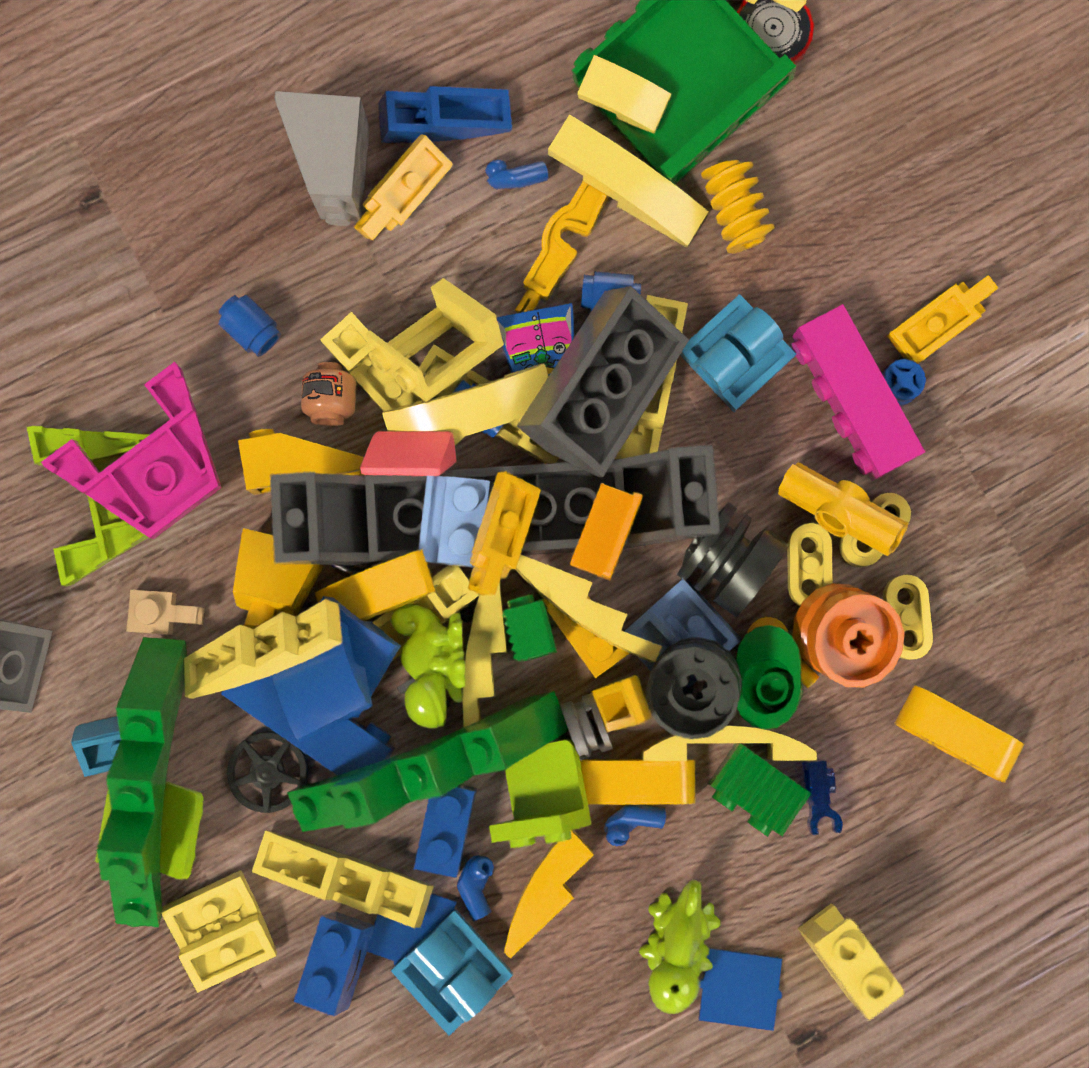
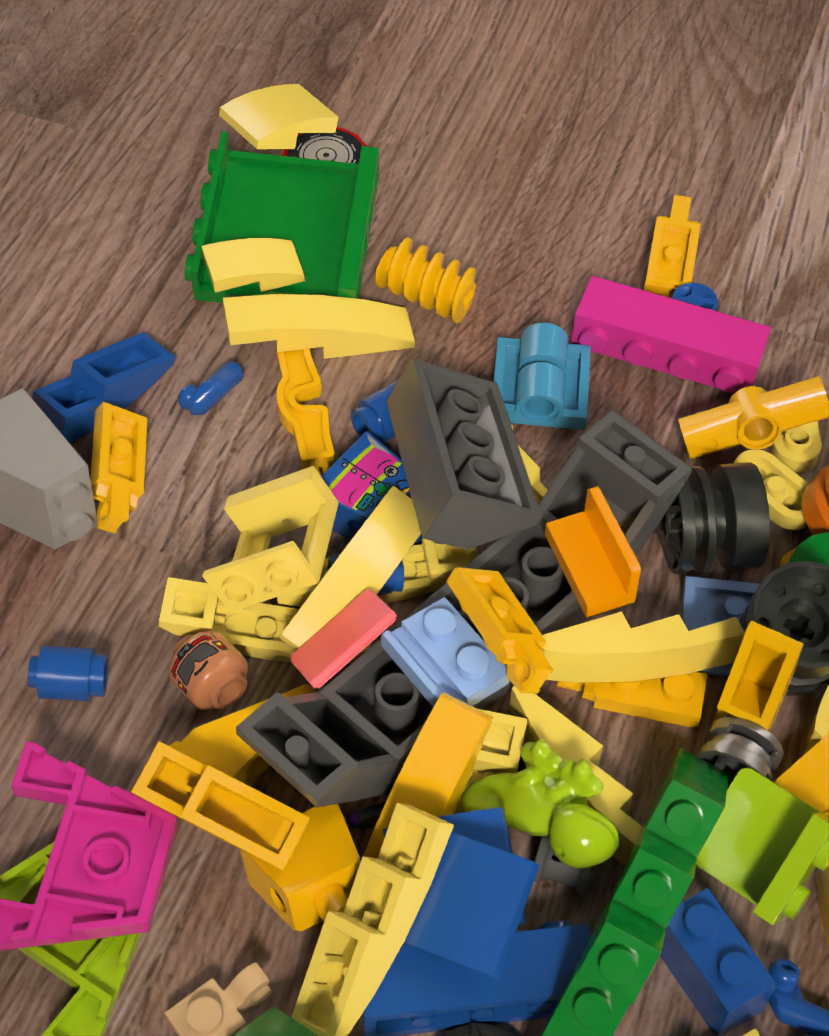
camera: 45 degrees left, 30 degrees down
(240, 501) = (221, 805): none -> yellow slope
(528, 629) = (608, 706): green brick -> none

